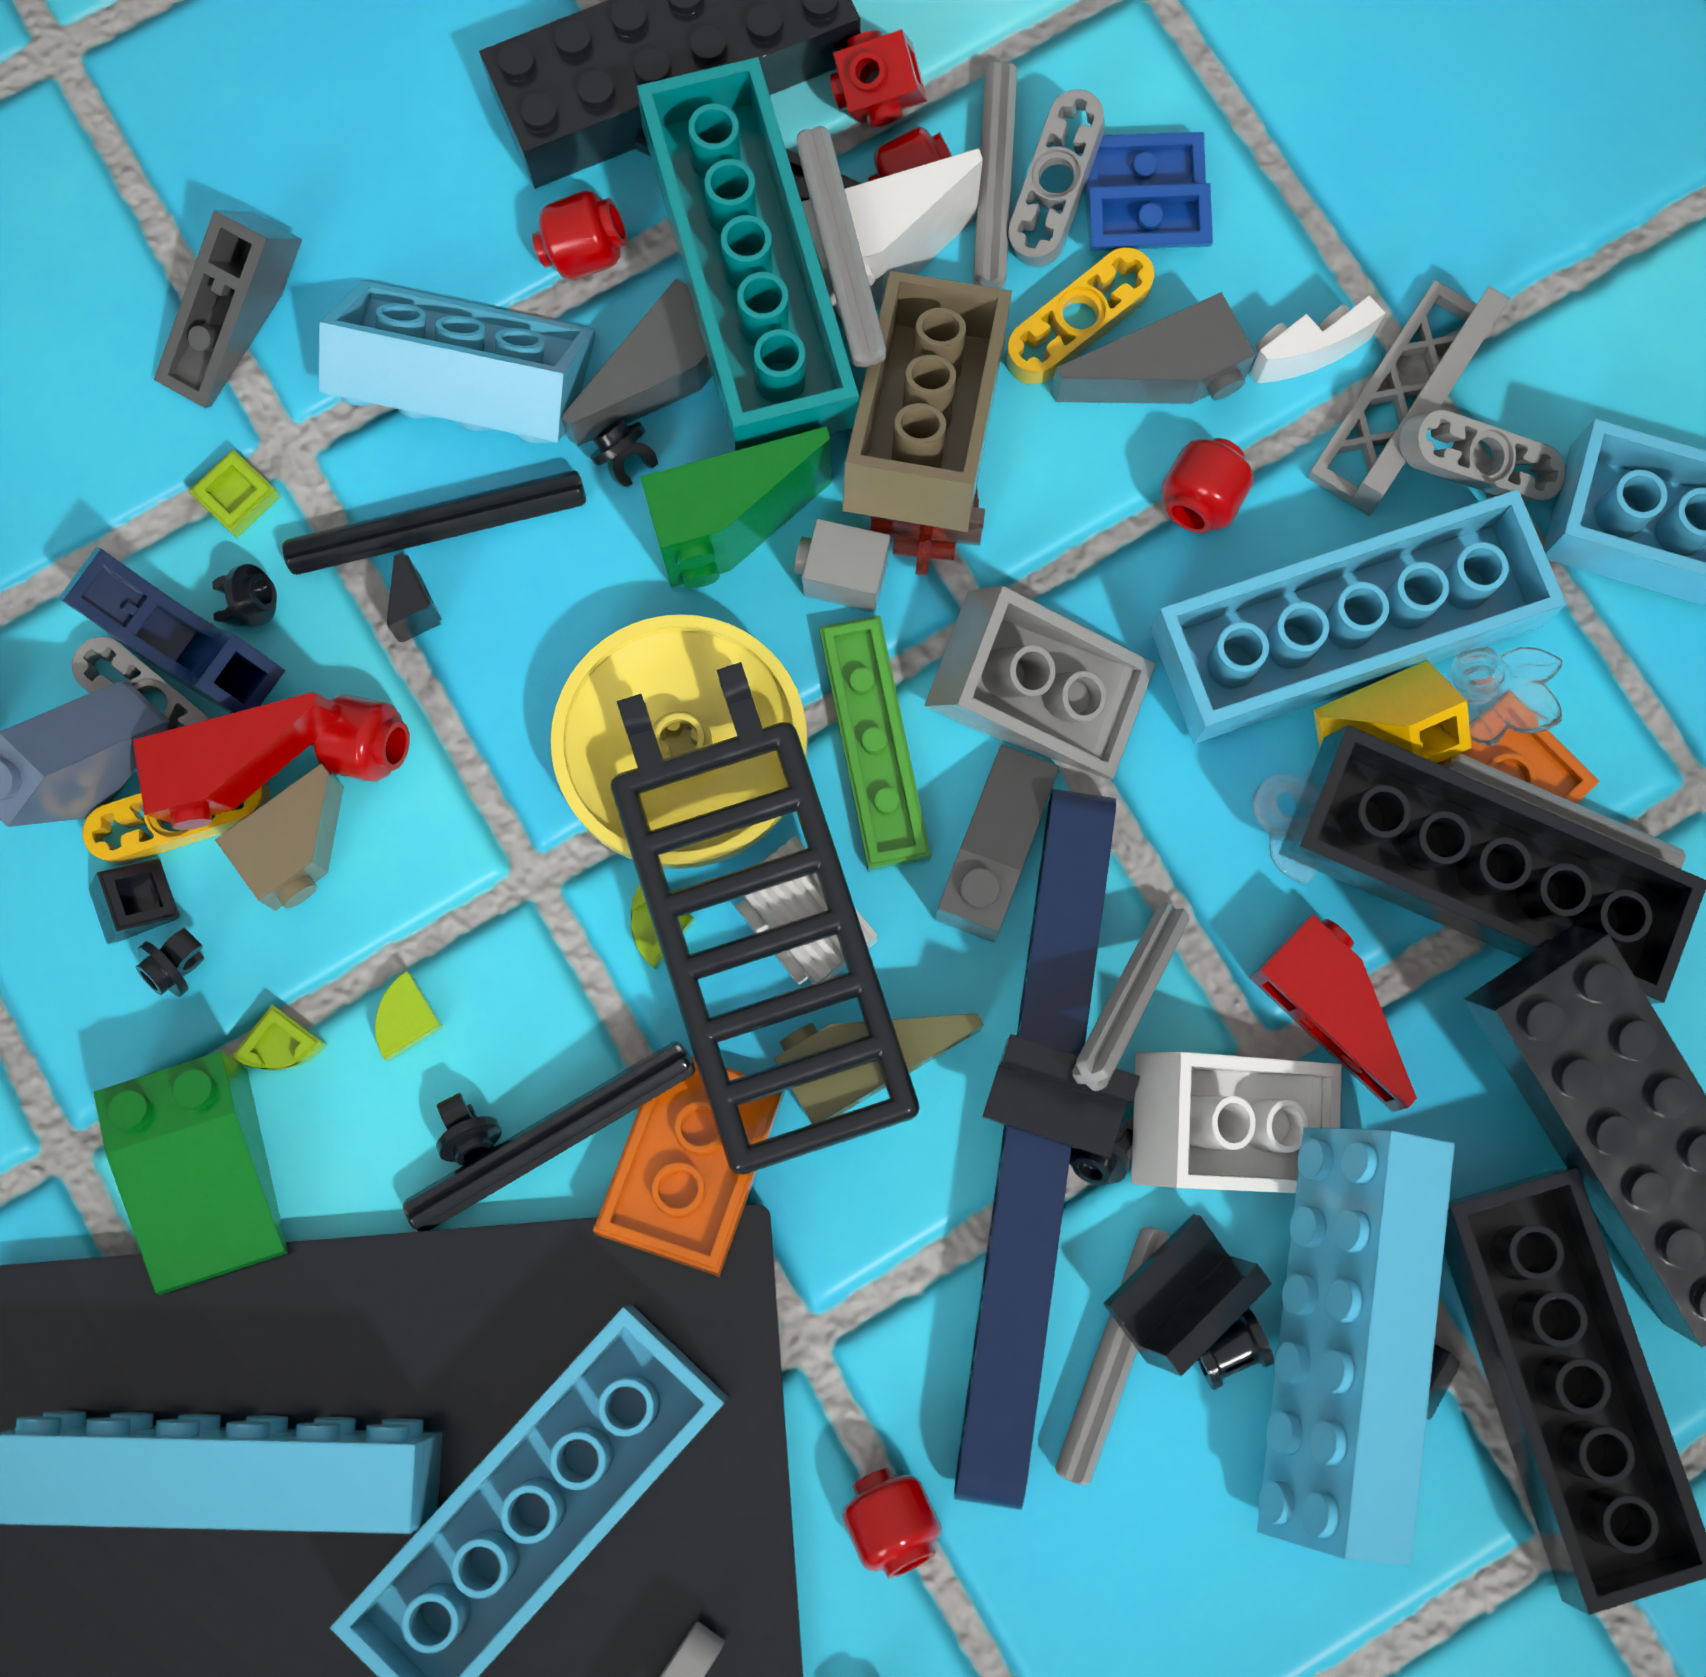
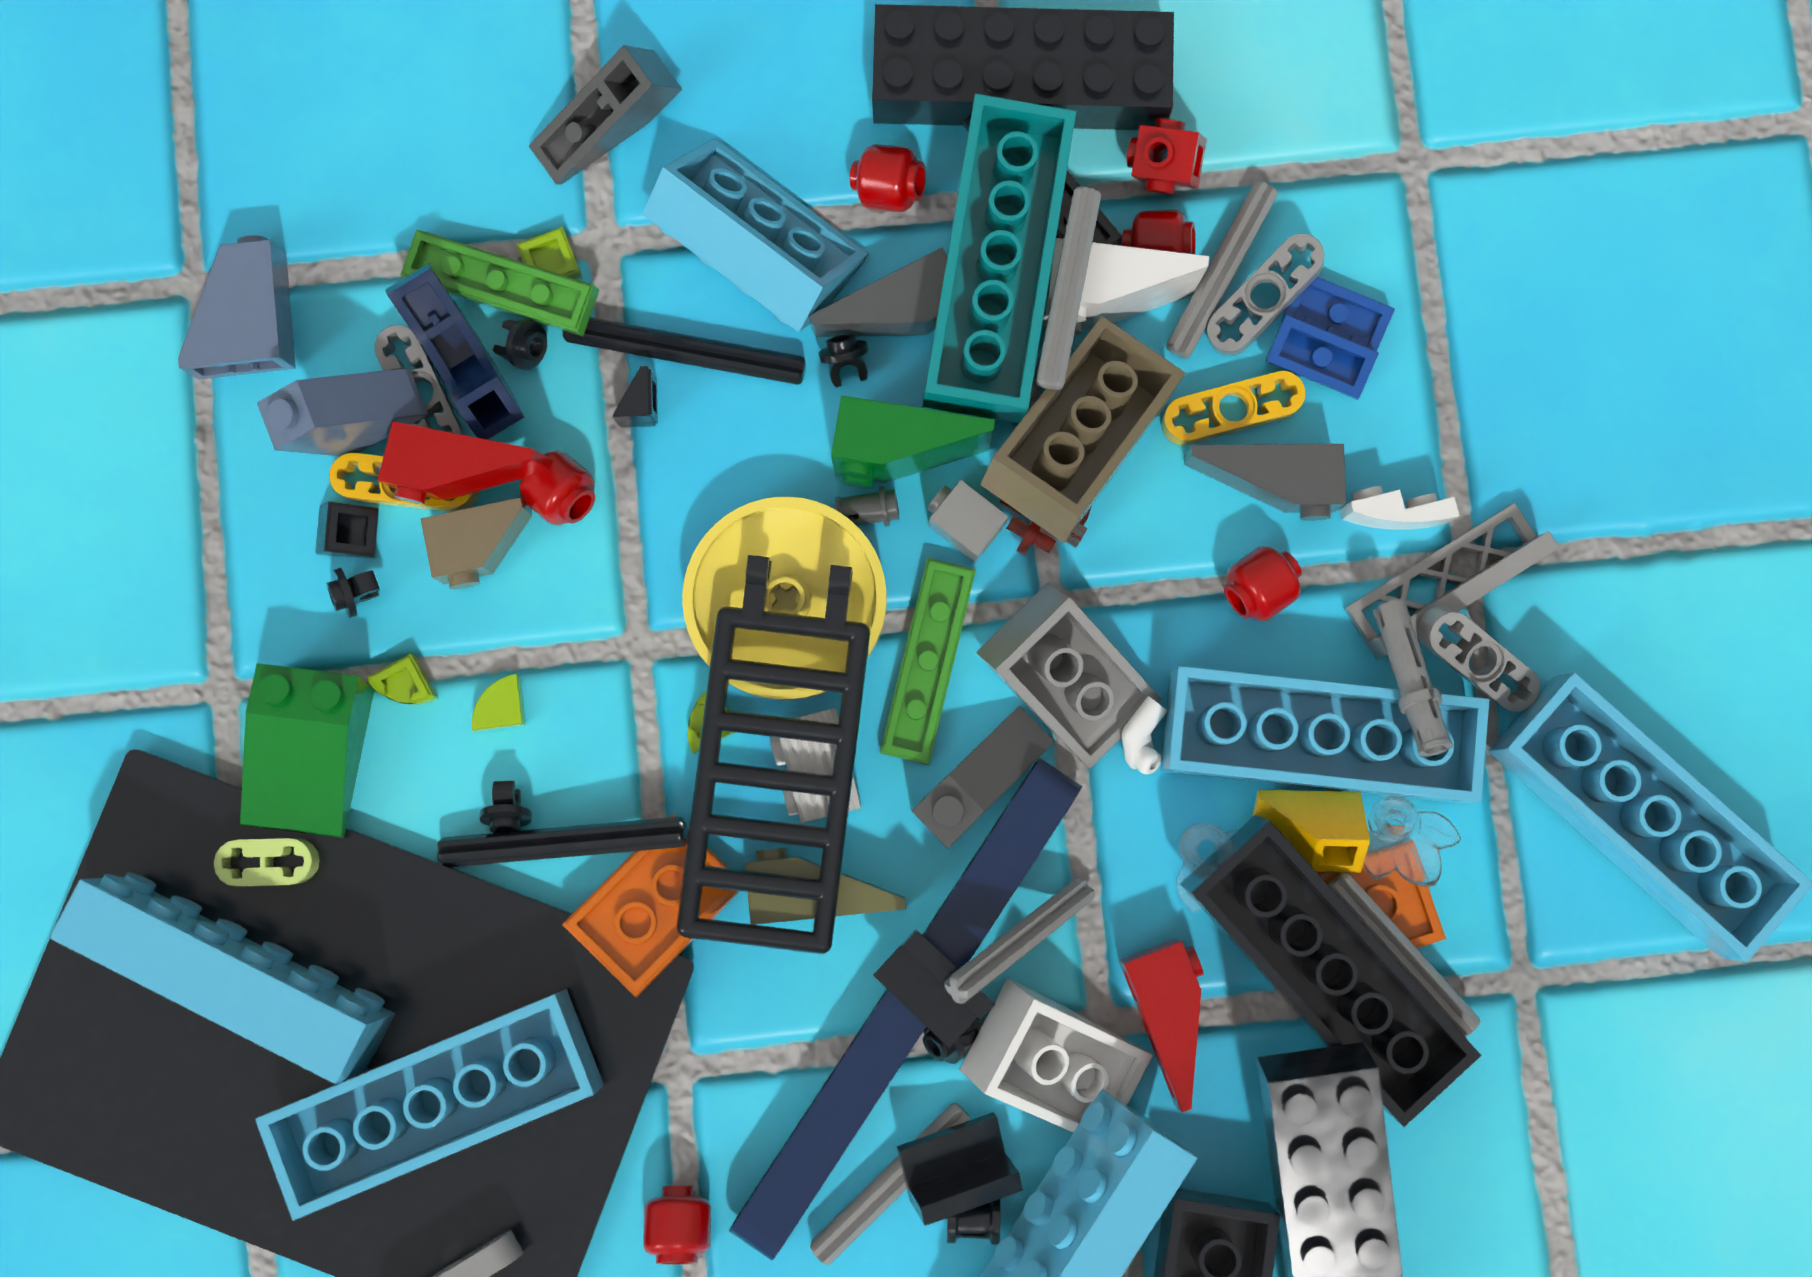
camera: 25 degrees right, 5 degrees up
(198, 536) = (504, 282): none -> bright green tile
(200, 1309) = (266, 874): none -> yellowish green beam
(730, 599) = (870, 507): none -> dark grey pin
(1150, 717) = (1138, 740): none -> white arm
(1441, 517) = (1416, 690): none -> light grey pin

